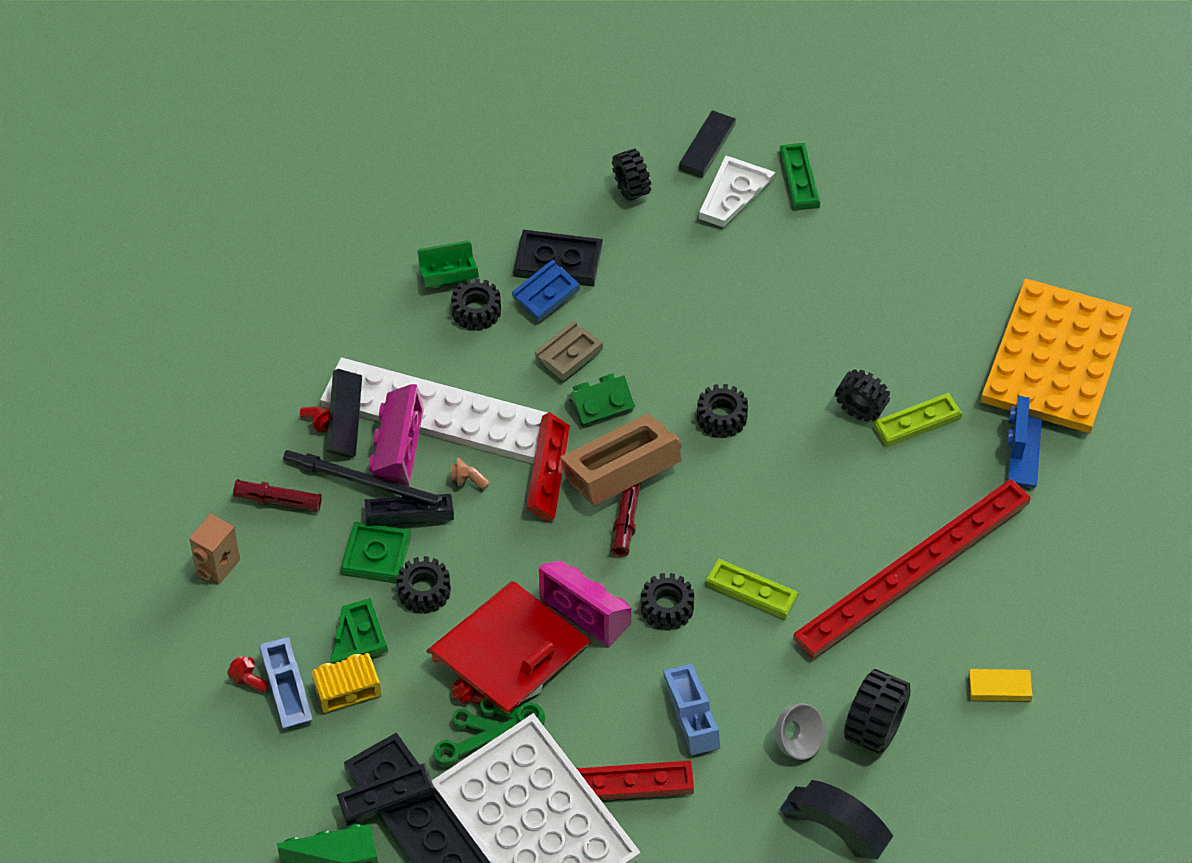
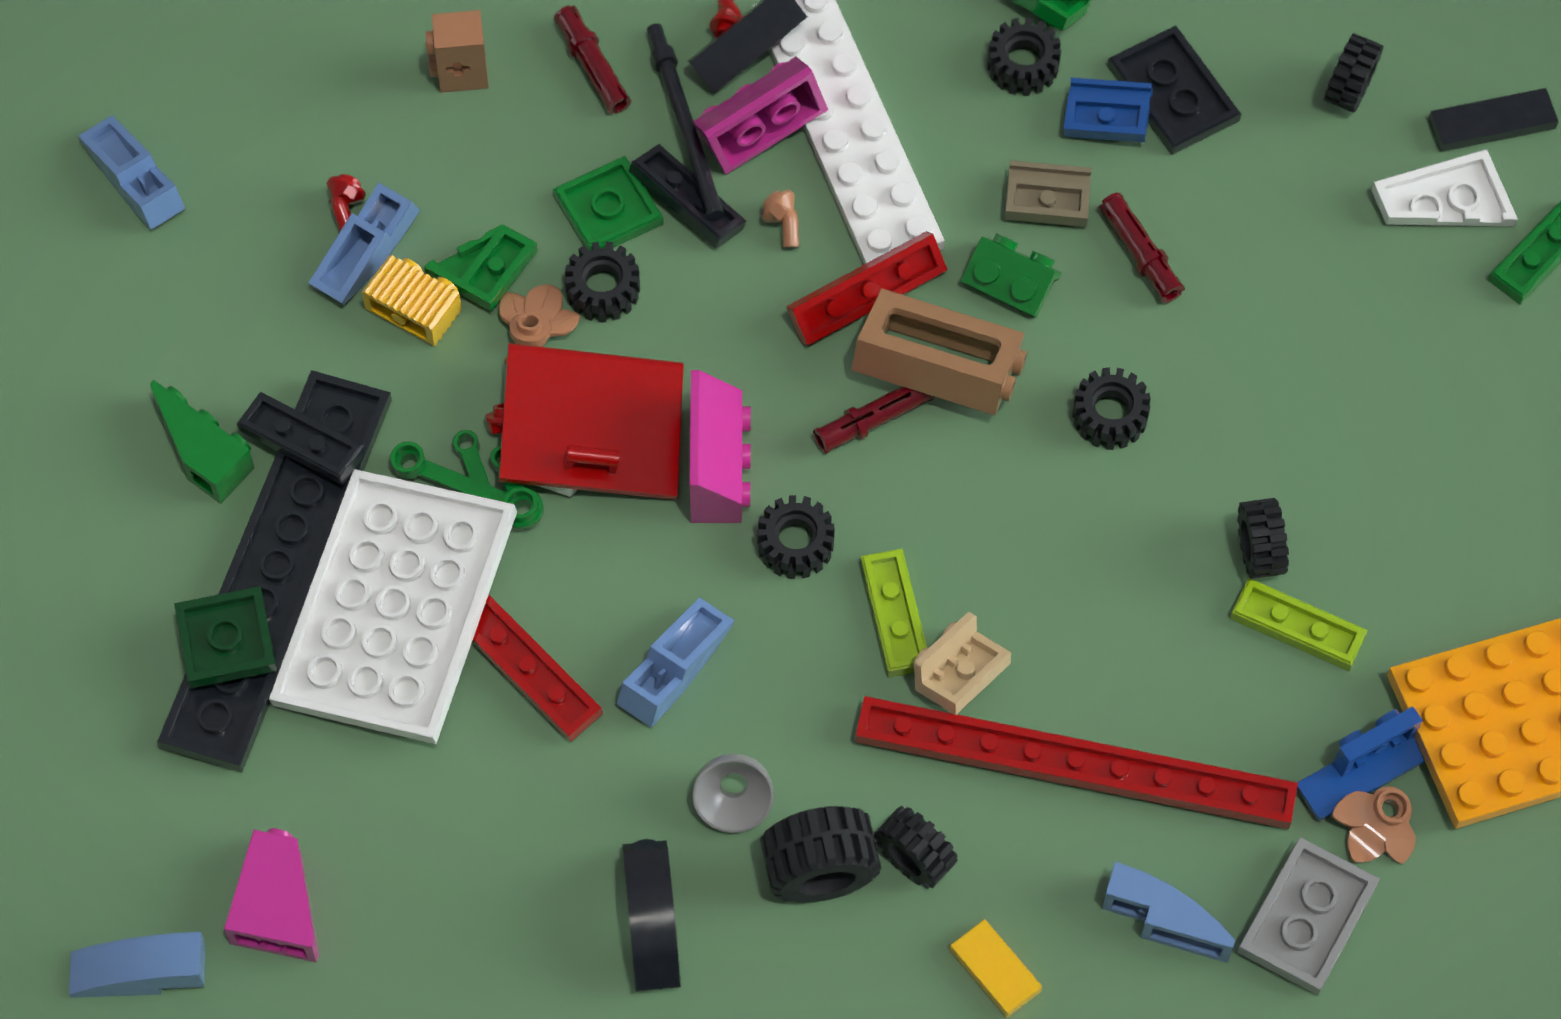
camera: 50 degrees right, 10 degrees up
(117, 768) = (132, 172): none -> medium blue slope
(413, 631) = (537, 315): none -> nougat plate
(638, 333) = (1149, 259): none -> dark red pin
(816, 578) = (959, 665): none -> tan bracket
(909, 664) = (915, 847): none -> black tyre
(1034, 586) = (1167, 913): none -> medium blue slope
(1060, 463) = (1374, 831): none -> nougat plate
(1087, 527) = (1308, 916): none -> light grey plate

